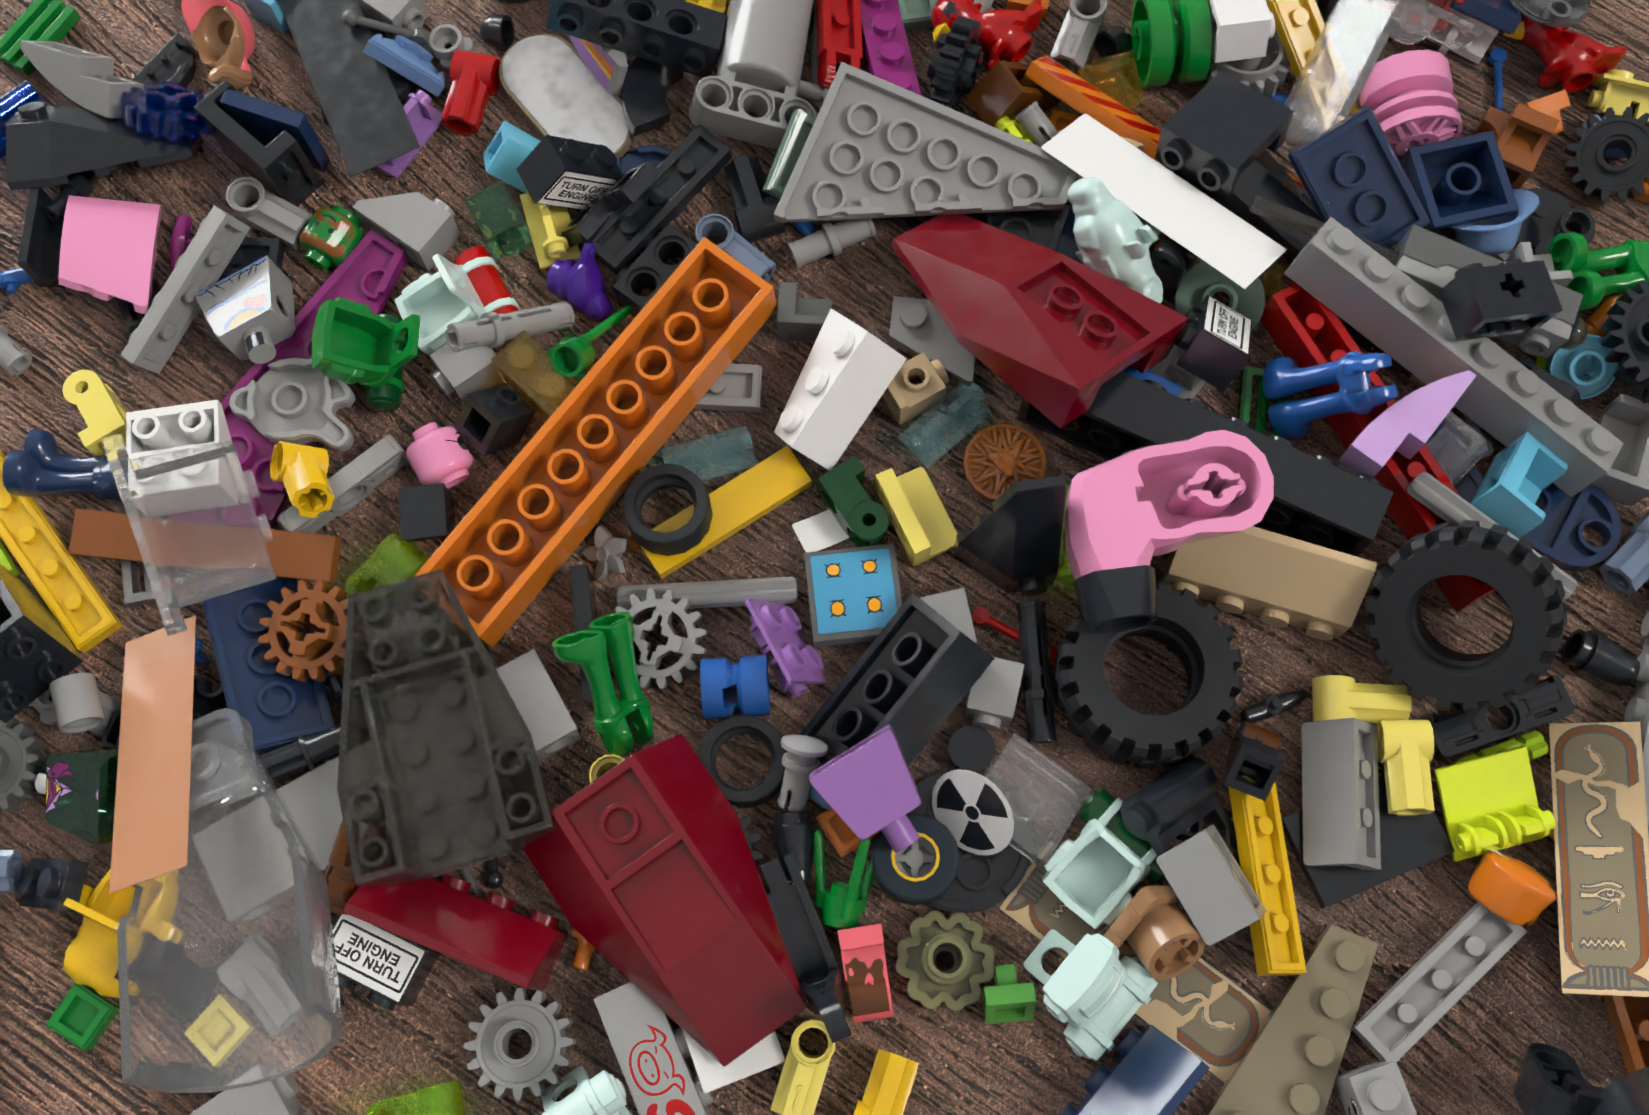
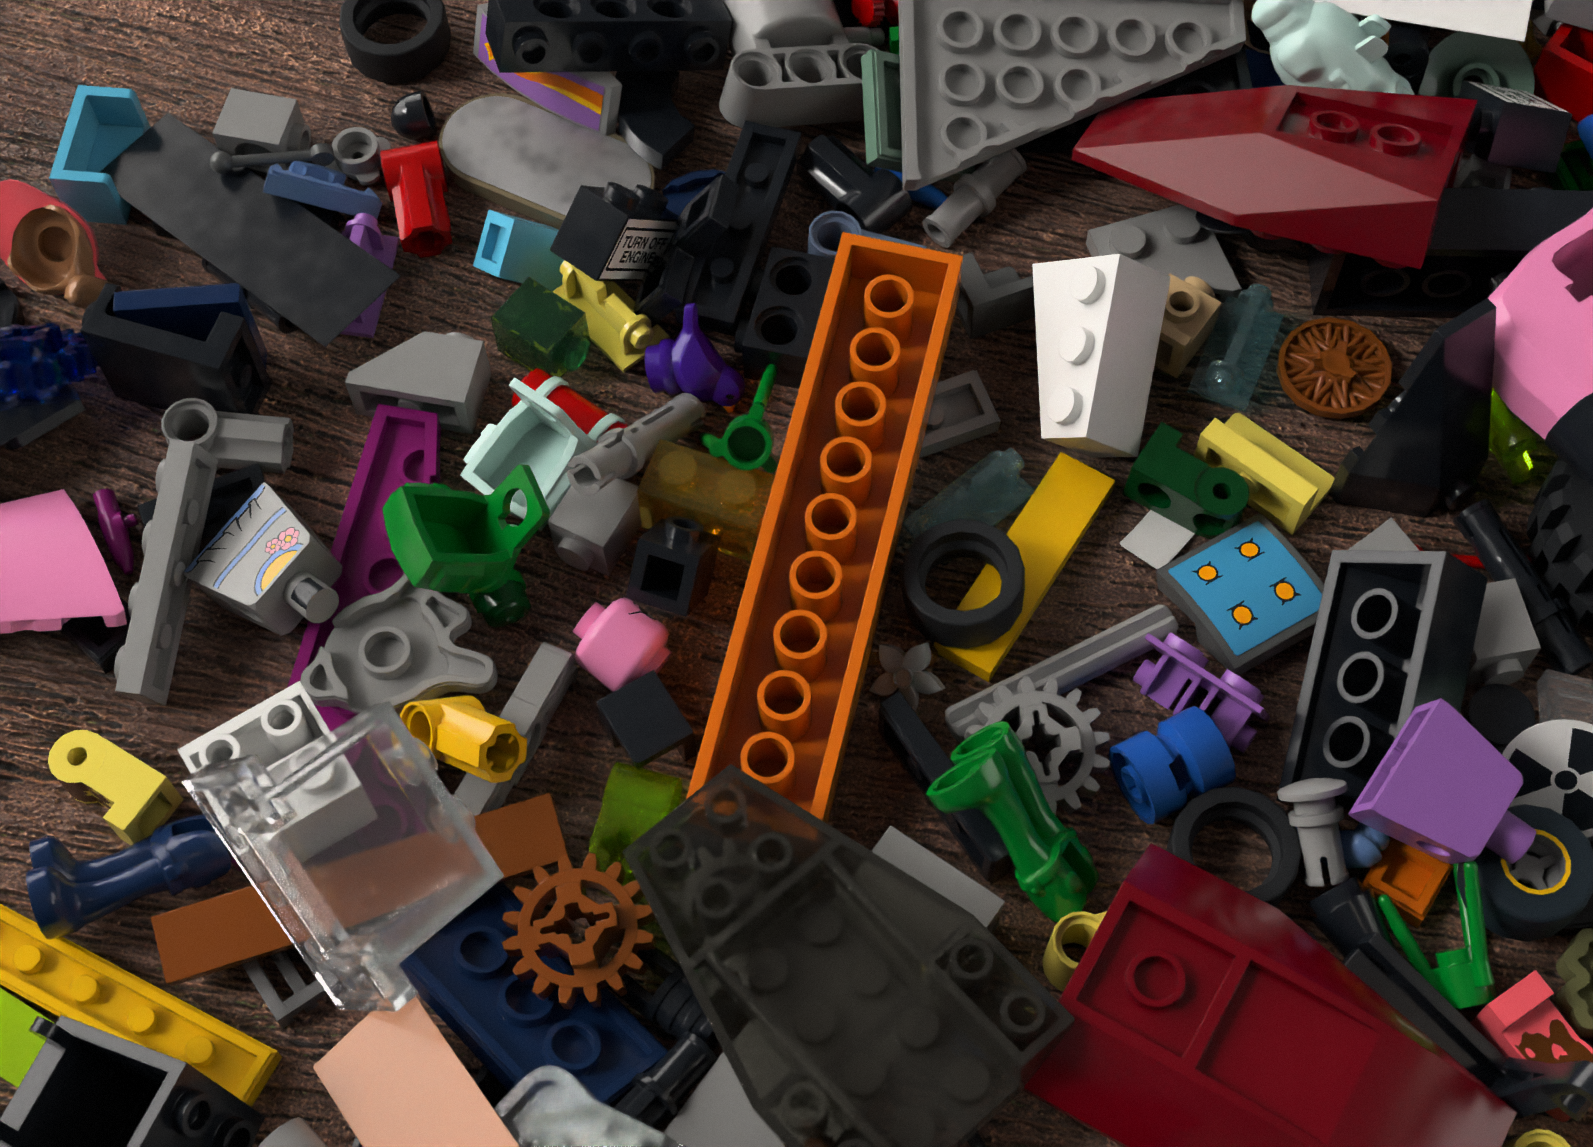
camera: 25 degrees left, 10 degrees down
(330, 237) = (326, 437): green head -> none

